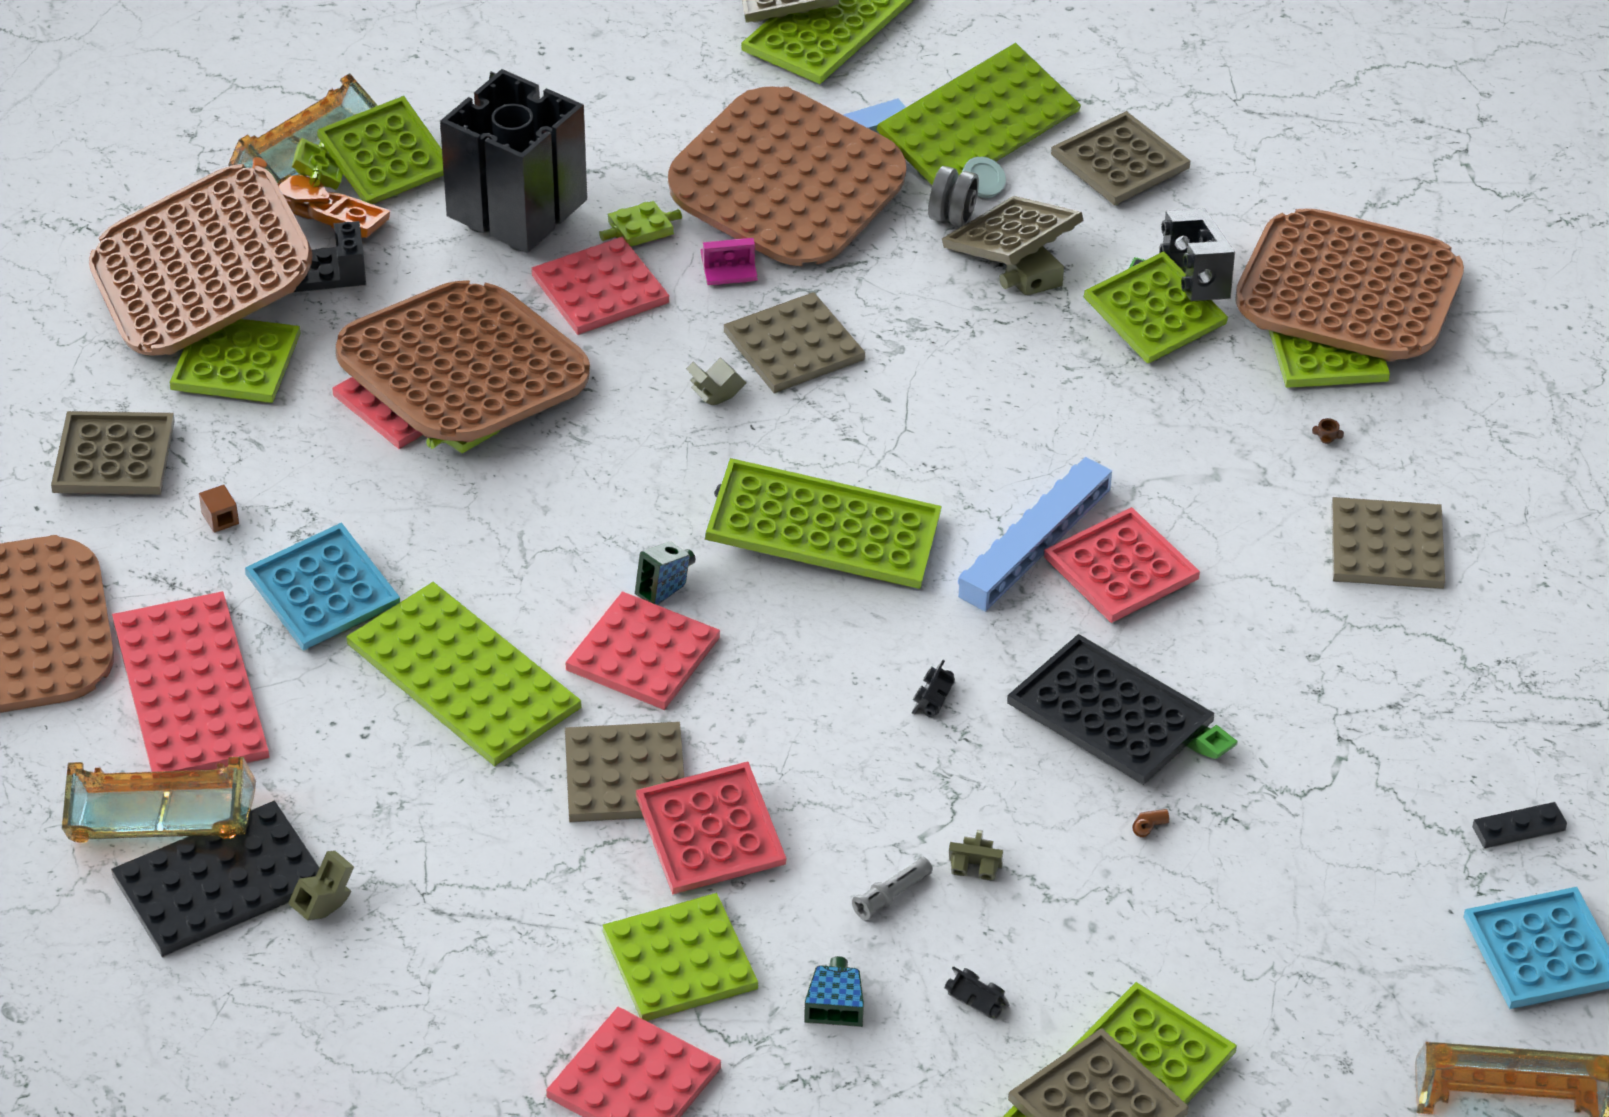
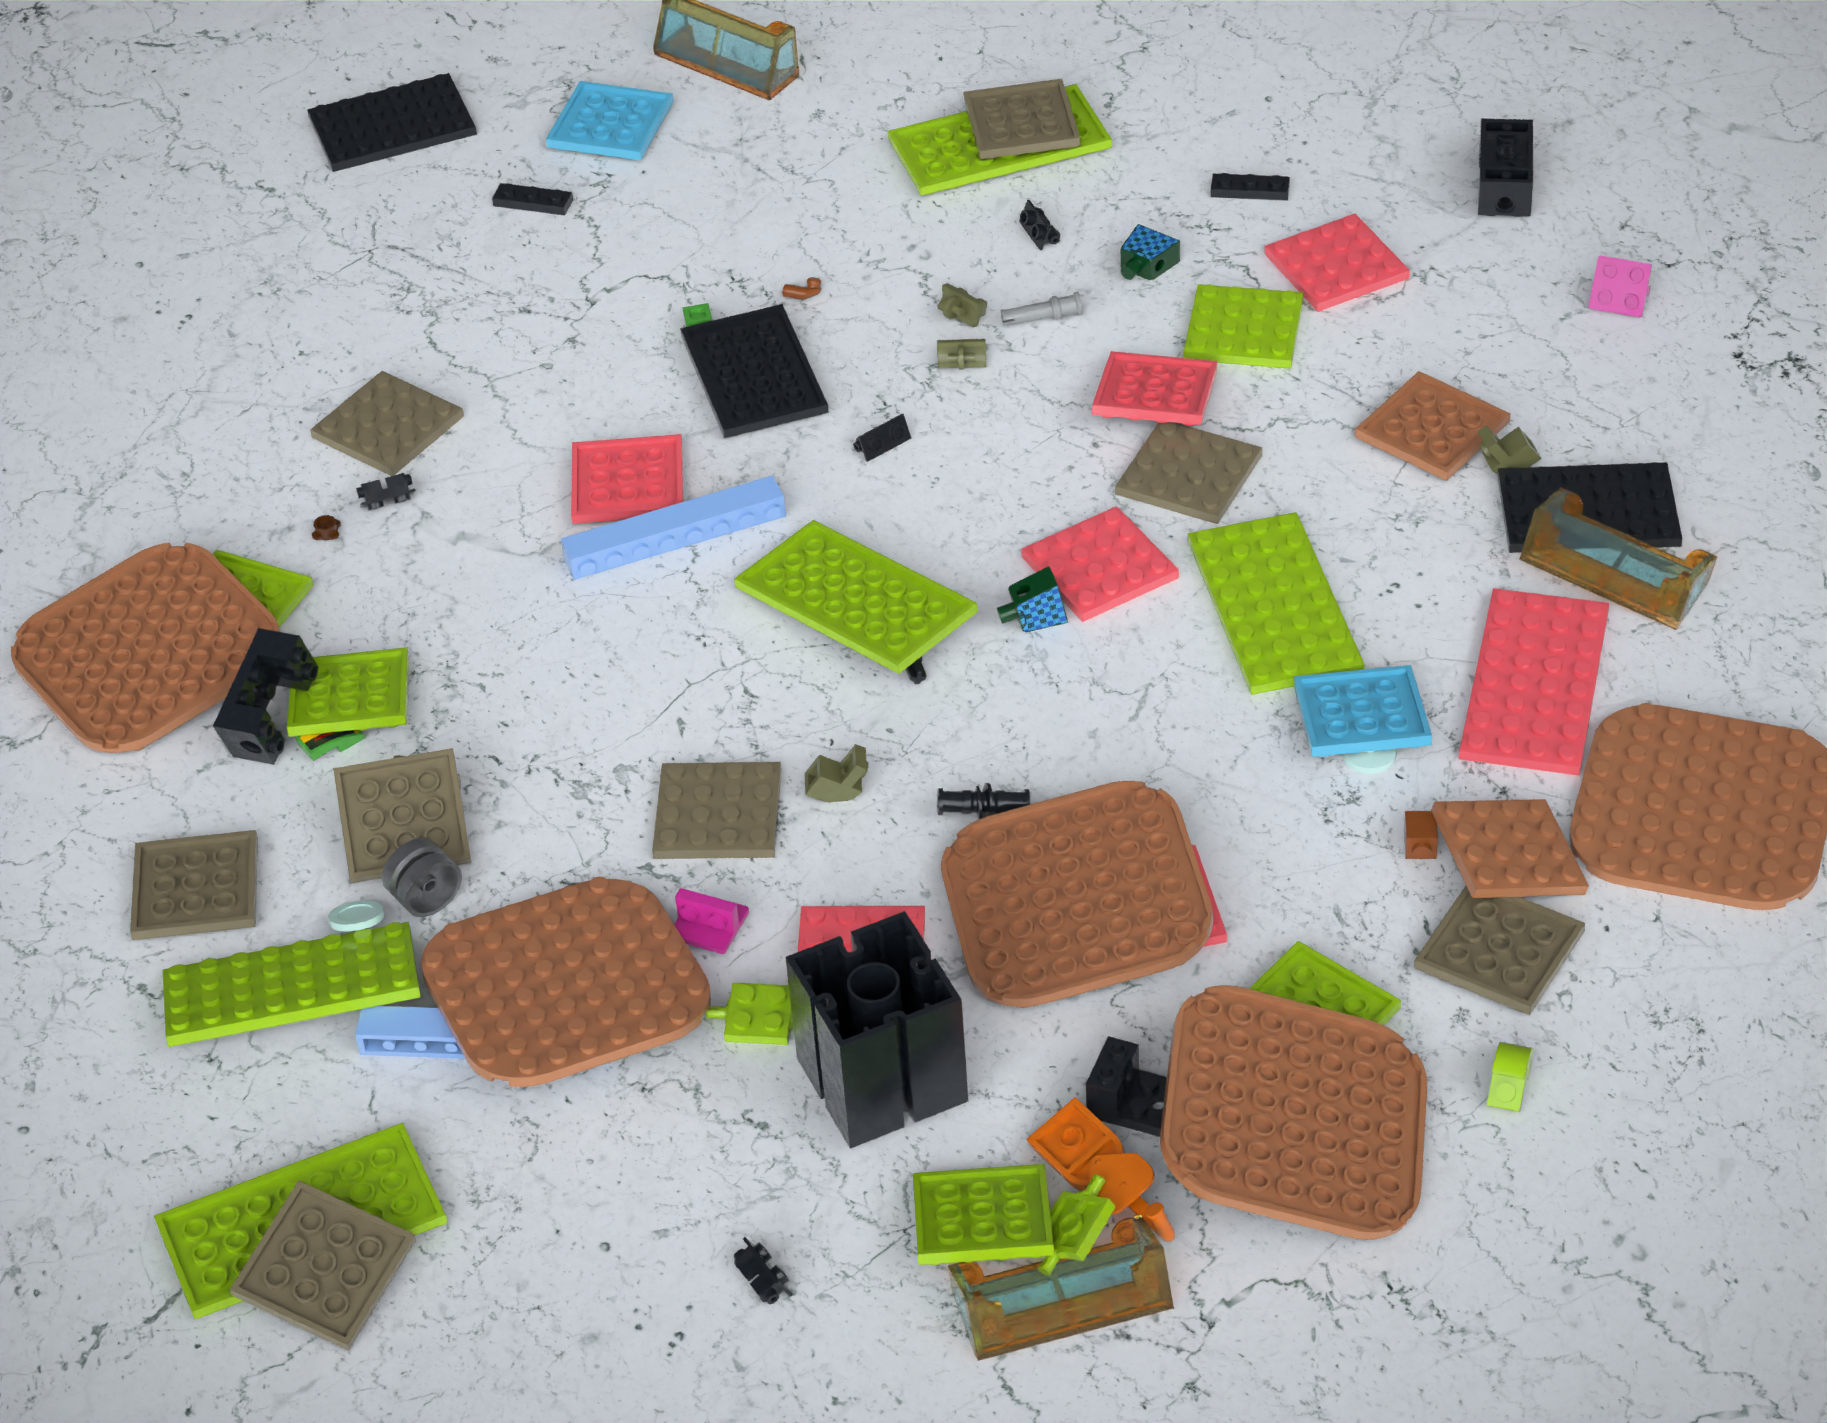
camera: 145 degrees left, 0 degrees up
(60, 360) = (1509, 1076): none -> lime brick
(138, 516) = (1509, 848): none -> nougat plate
(416, 903) = (1431, 425): none -> nougat plate
(585, 405) = (980, 801): none -> black piece
(929, 796) = (961, 353): none -> olive hips
(1308, 470) = (396, 489): none -> black hinge

